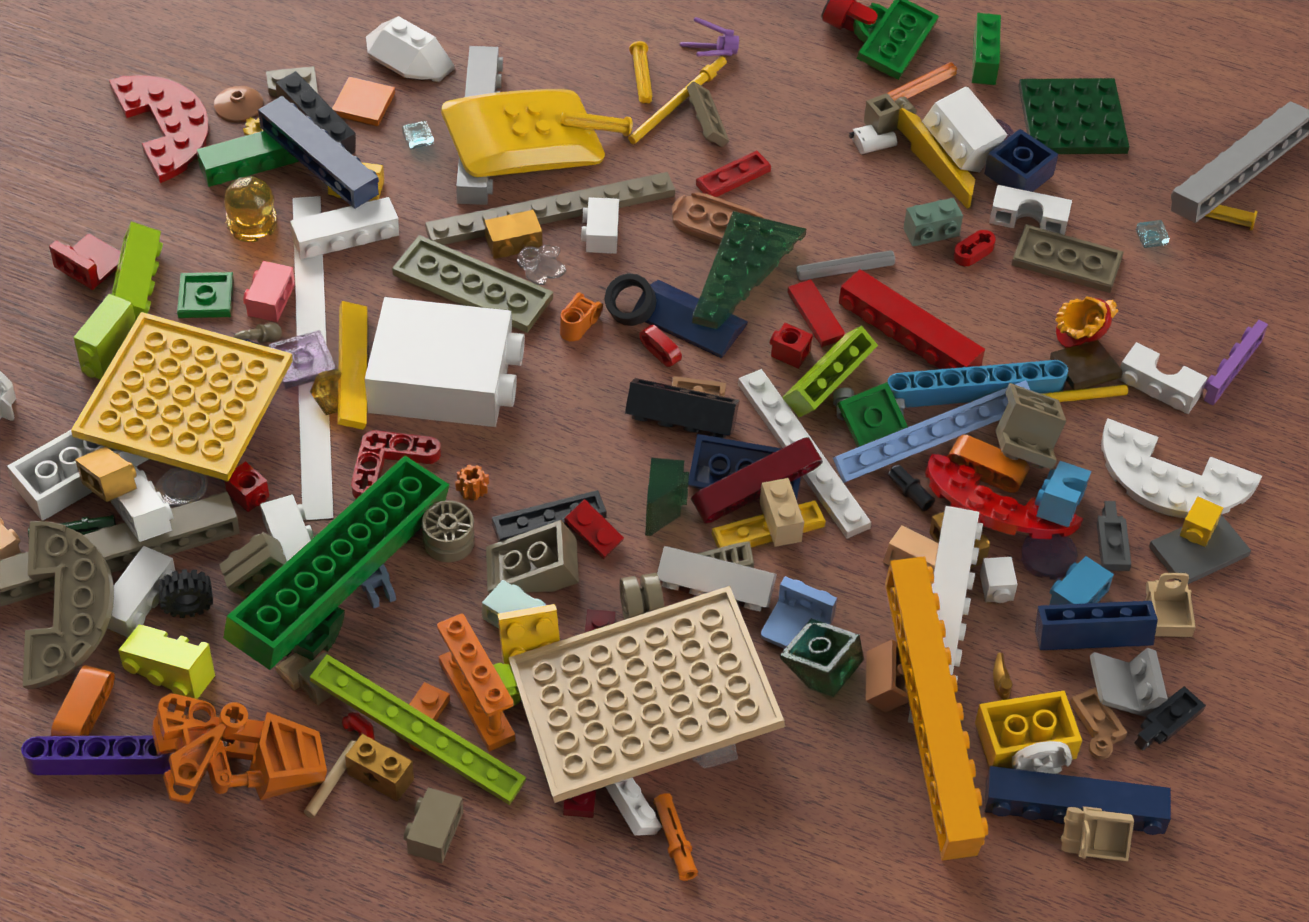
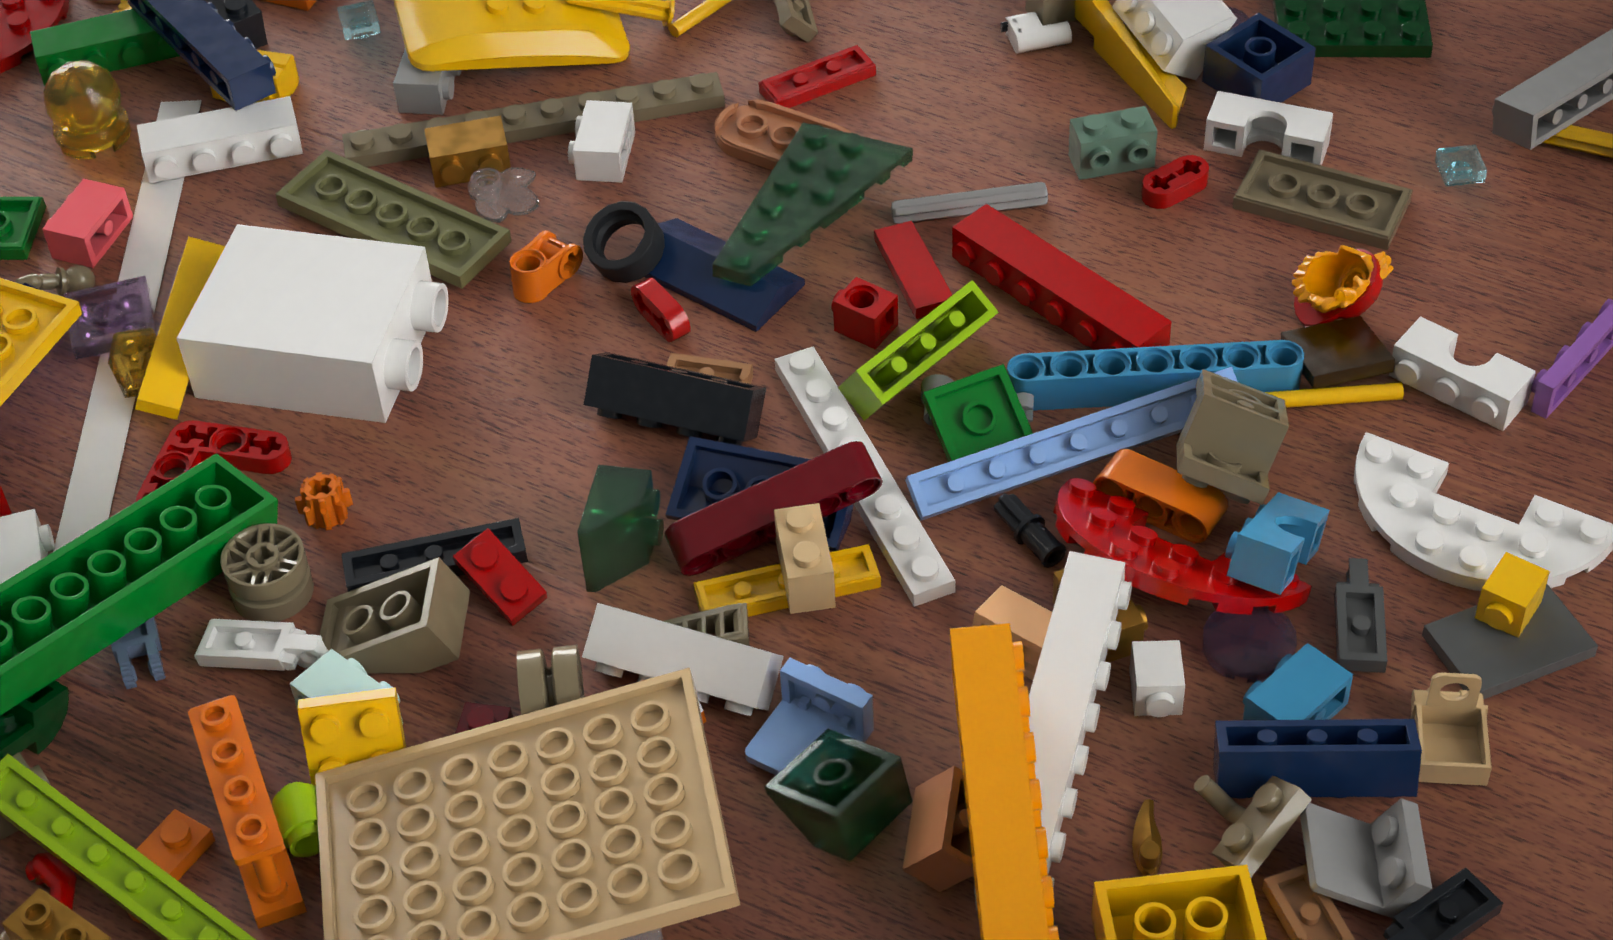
camera: 10 degrees right, 5 degrees down
(452, 578) = (258, 645): none -> white hinge
(1066, 666) = (1258, 826): none -> dark tan plate

